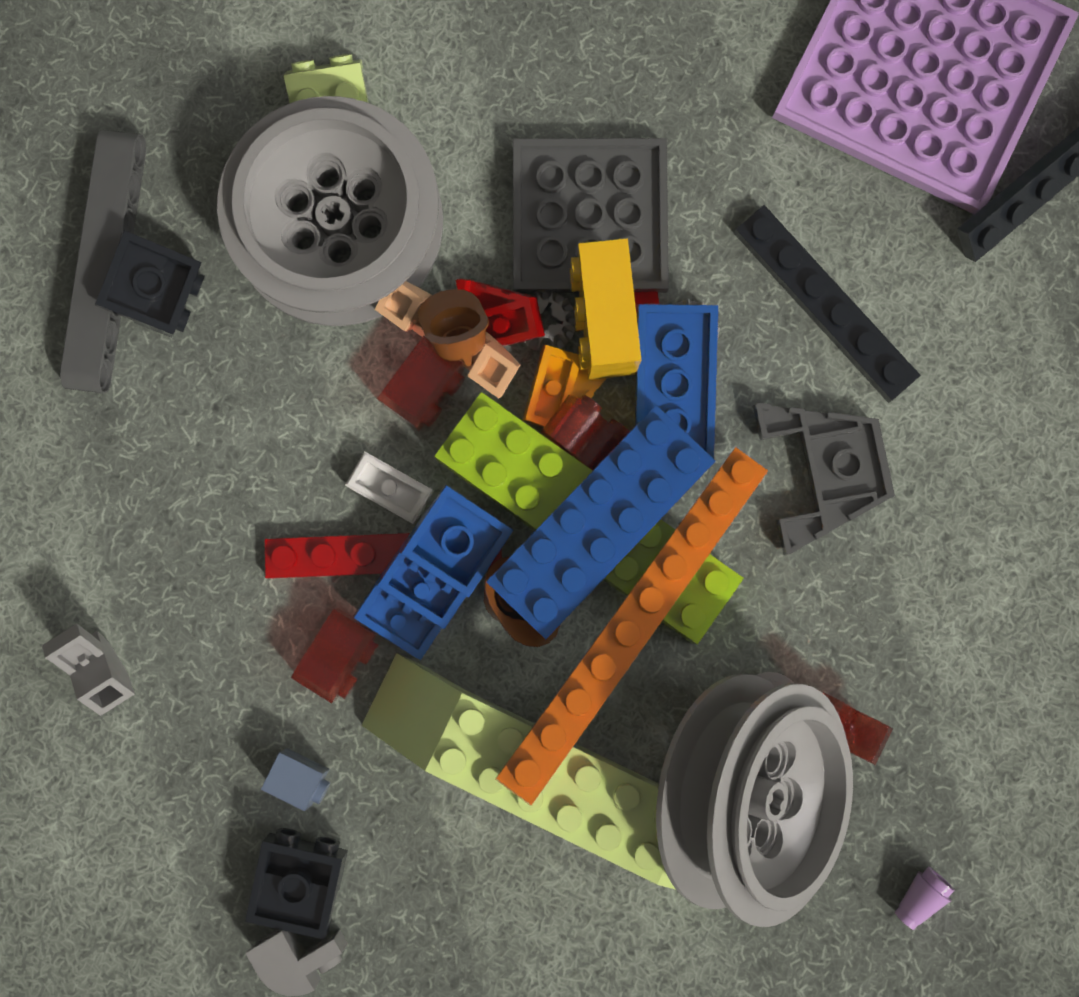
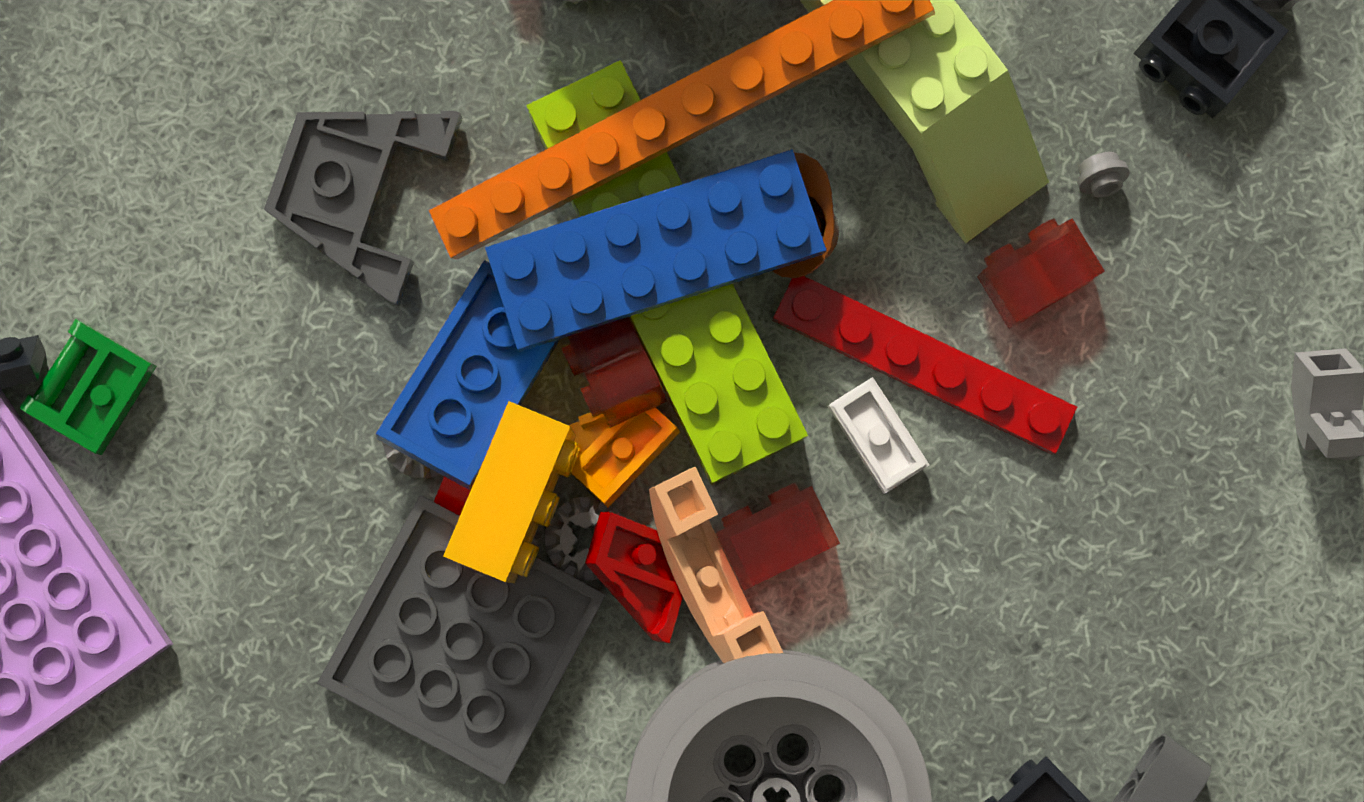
camera: 155 degrees left, 0 degrees up
(297, 780) = (1155, 156): sand blue brick -> none
(326, 748) = (1102, 174): none -> light grey plate
(433, 572) = (879, 303): blue slope -> none
(454, 324) = (701, 580): dark orange piece -> none
(826, 304) = (242, 381): black plate -> none
(911, 245) = (100, 396): none -> green plate

